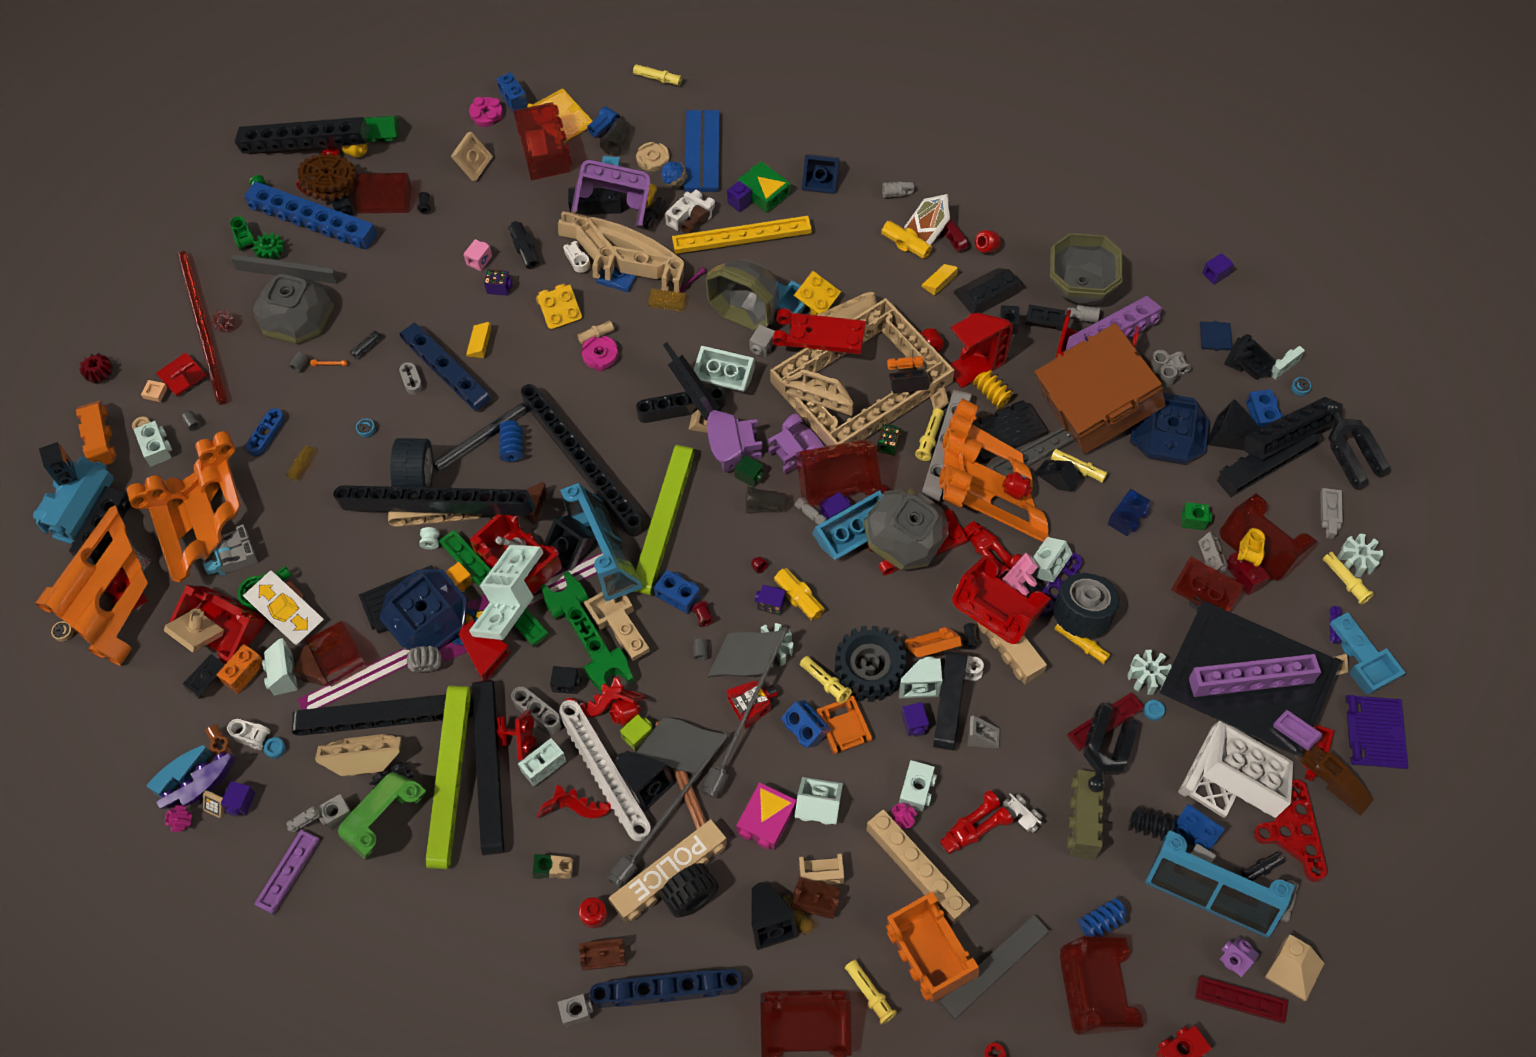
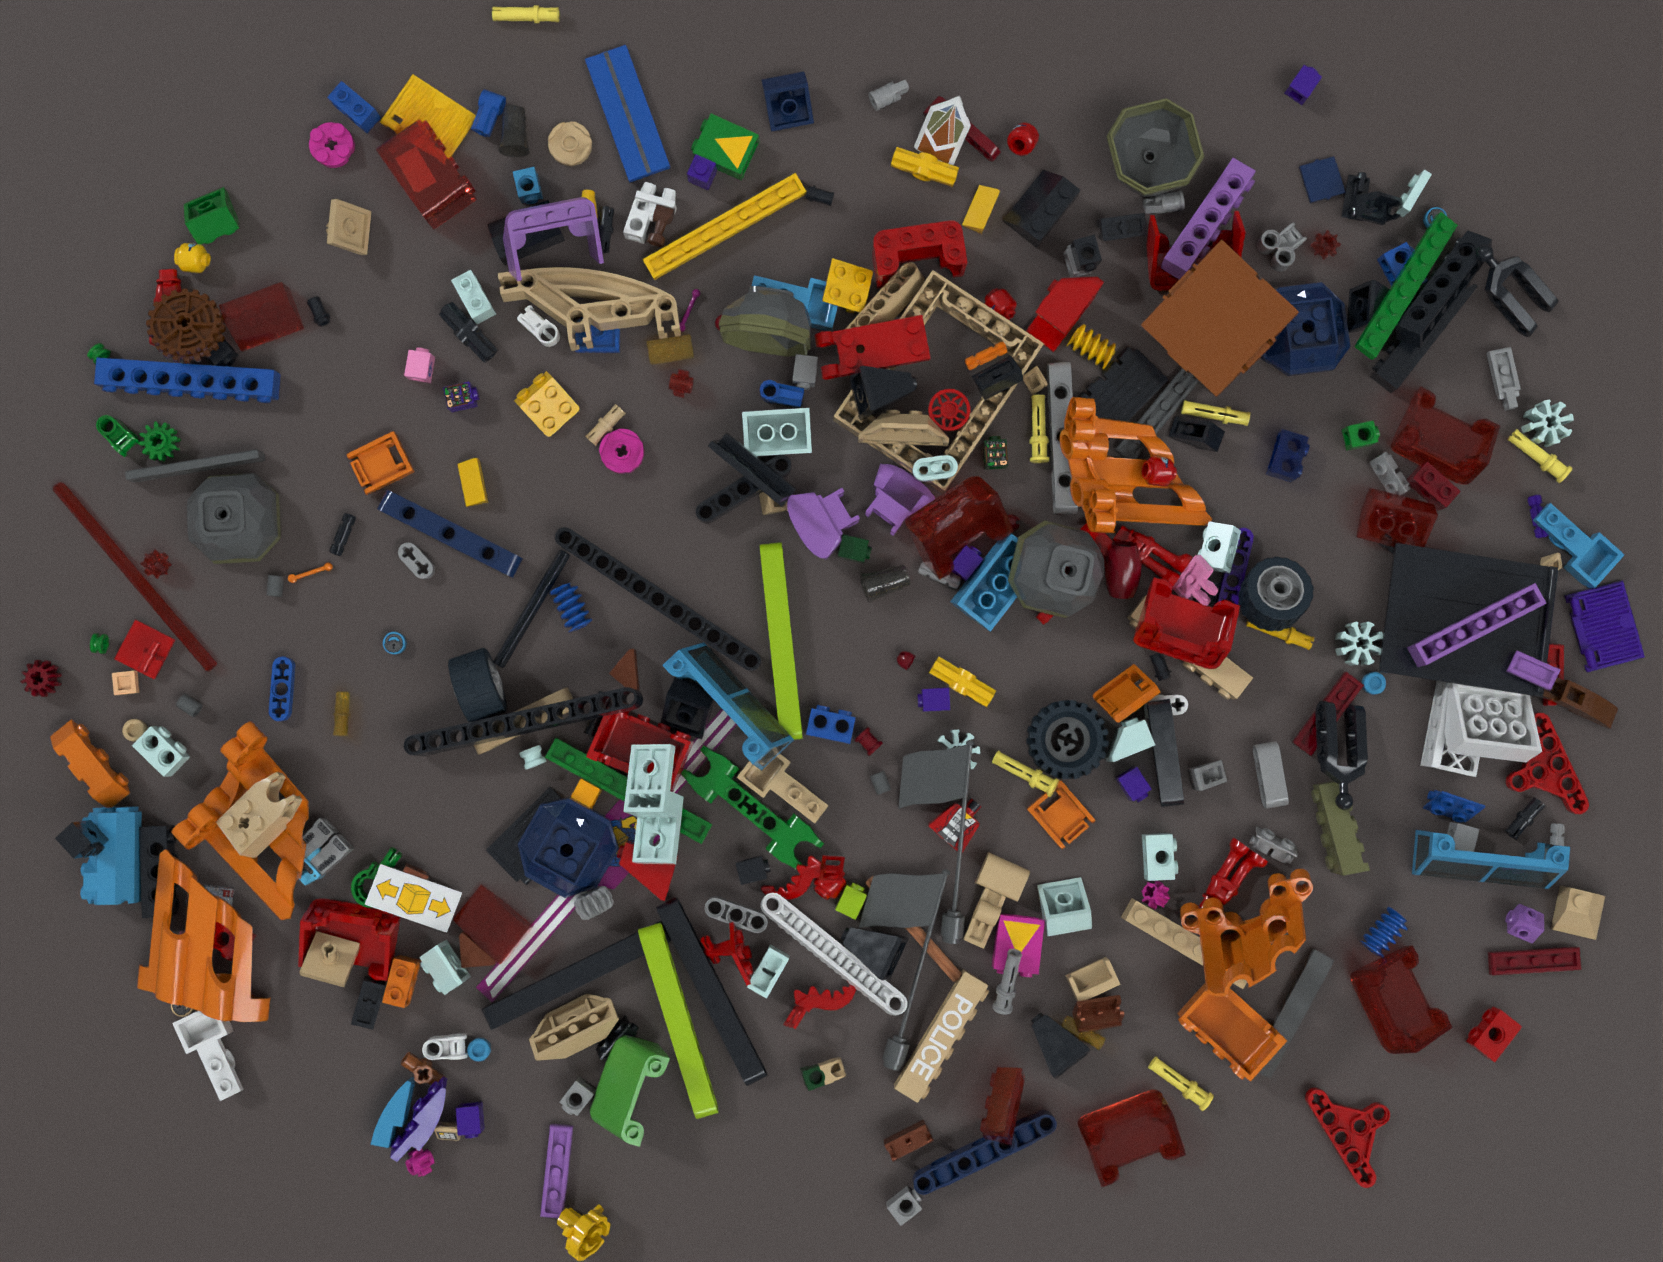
camera: 25 degrees left, 25 degrees up
(62, 655) = (205, 1035): none -> white plate
(151, 359) = (99, 643): none -> green bush
(198, 500) = (258, 816): none -> tan brick
(284, 924) = (583, 1231): none -> yellow piece
(302, 135) = (50, 289): black brick -> none
(303, 819) = (549, 1117): light grey axle -> none
(414, 308) = (377, 465): none -> orange container
(515, 541) = (632, 734): light grey piece -> none
(538, 224) = (473, 297): none -> light aqua brick
(593, 912) = (883, 1106): red head -> none
(664, 321) = (681, 383): none -> clear red gear
(674, 174) = (610, 168): blue piece -> none
(689, 890) = (973, 1054): black tyre -> none
(700, 945) = (1003, 1104): none -> clear red slope
(736, 347) = (784, 394): none -> blue piece
(742, 850) = (1006, 990): none -> light grey pin
(769, 760) = (1000, 881): none -> tan plate
(808, 719) = (1023, 831): blue brick -> none
(814, 355) = (879, 388): none -> black slope
(821, 236) = (819, 195): none -> black pin
(835, 423) = (934, 467): none -> light aqua plate
(863, 390) = (949, 409): none -> red wheel
(884, 277) = (919, 243): none -> red windscreen
(943, 859) = (1248, 950): none -> orange panel
(962, 549) = (1123, 569): none -> dark red piece
(1038, 752) = (1270, 775): none -> light grey beam
(1151, 823) = (1406, 812): black piece -> none
(1205, 376) = (1326, 238): none -> clear red gear
(1252, 547) = (1436, 467): yellow piece -> none
(1261, 414) = (1405, 286): none -> green plate

